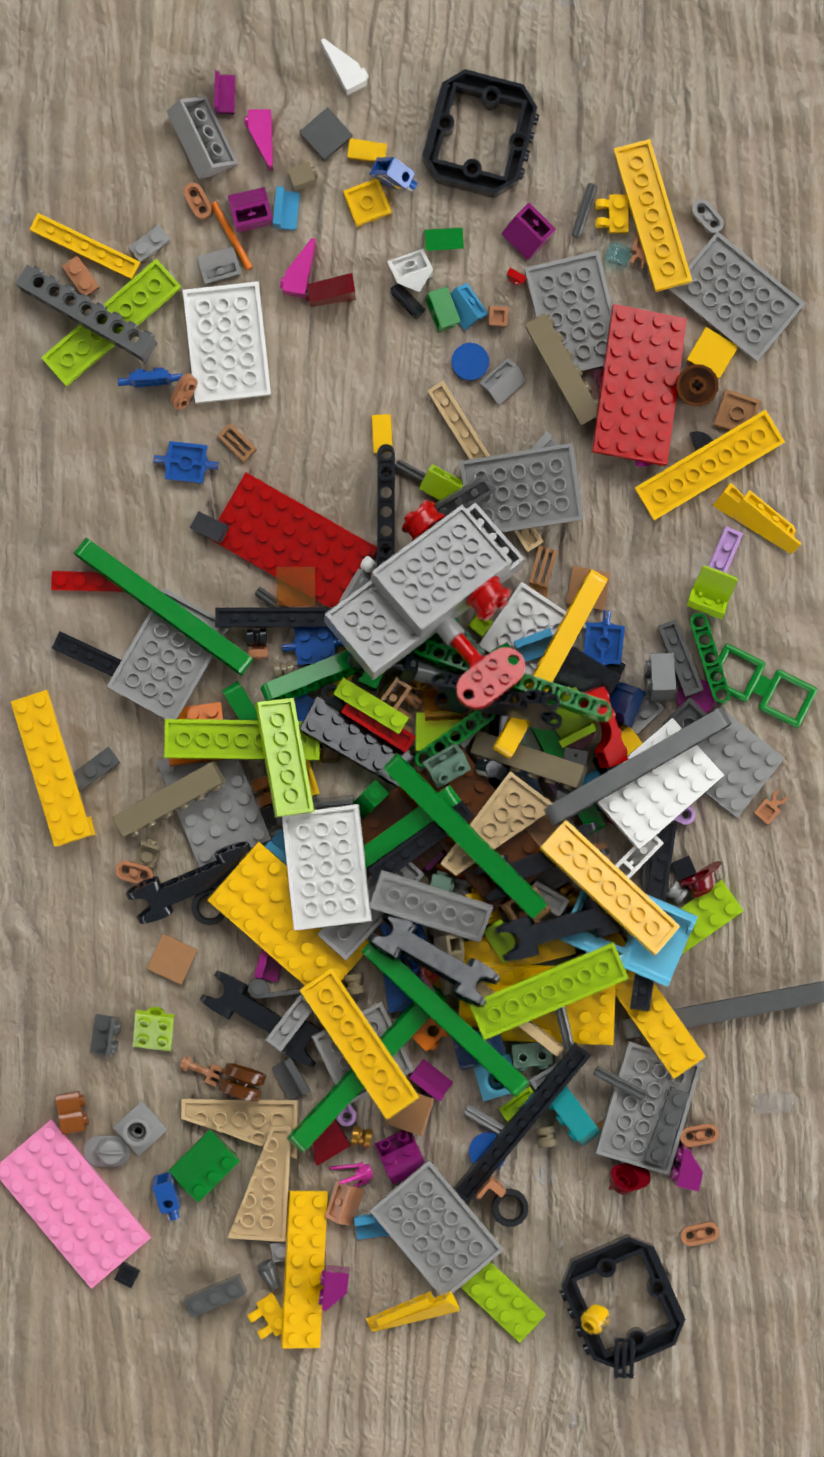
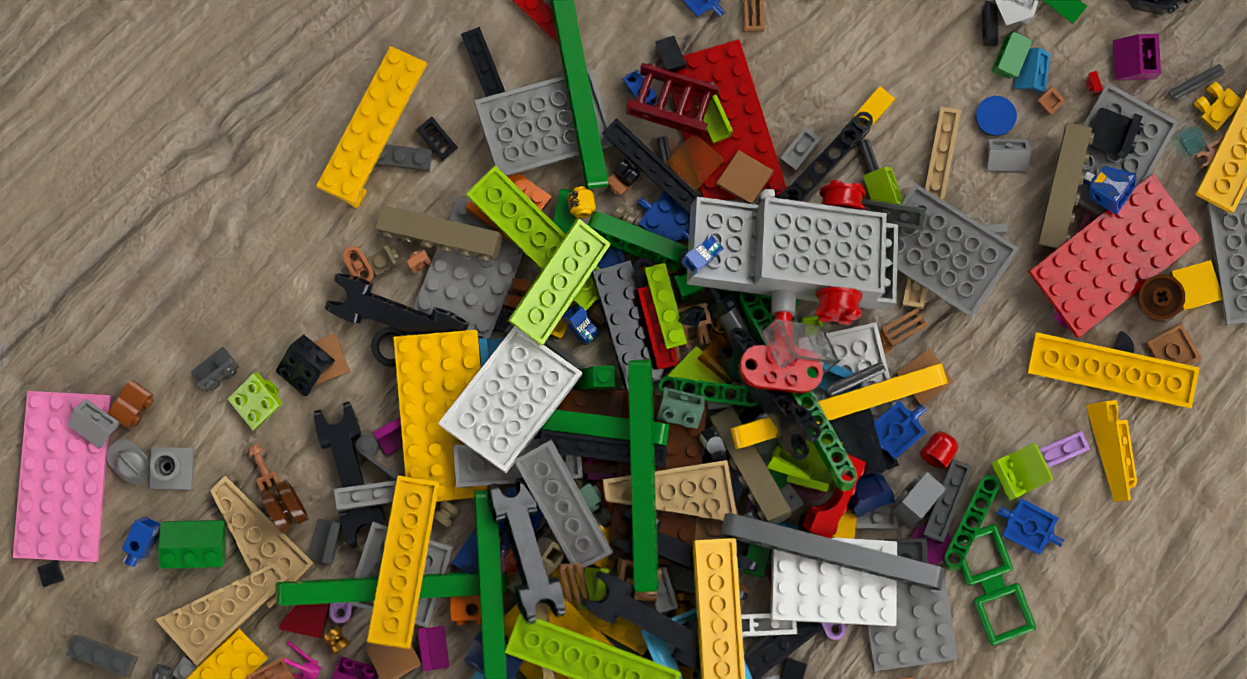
camera: 45 degrees right, 5 degrees down
(58, 1149) = (92, 423): none -> light grey panel
(120, 737) = (431, 143): none -> black slope
(163, 974) = (304, 364): none -> black bracket
(173, 832) = (418, 261): none -> nougat plate
(211, 571) = (634, 82): none -> blue leg
(246, 688) = (581, 202): none -> yellow head
(257, 568) = (676, 119): none -> dark red fence
(283, 545) = (718, 123): none -> lime panel
(324, 771) = (580, 324): none -> blue leg
(341, 566) = (745, 177): none -> medium nougat tile
(359, 510) = (800, 149): none -> light grey plate
(367, 652) = (702, 255): none -> blue leg
(395, 696) = (692, 316): none -> black tile
(486, 648) = (800, 341): none -> clear panel
(495, 956) = (578, 597): none -> medium nougat tile
(545, 635) = (856, 379): none -> dark grey axle
(548, 738) = (784, 463): none -> lime slope
(562, 299) = (1115, 132): none -> black bracket
(594, 341) = (1111, 187): none -> blue torso
(644, 628) = (940, 446): none -> red helmet
(751, 623) = (1030, 526): none -> blue plate

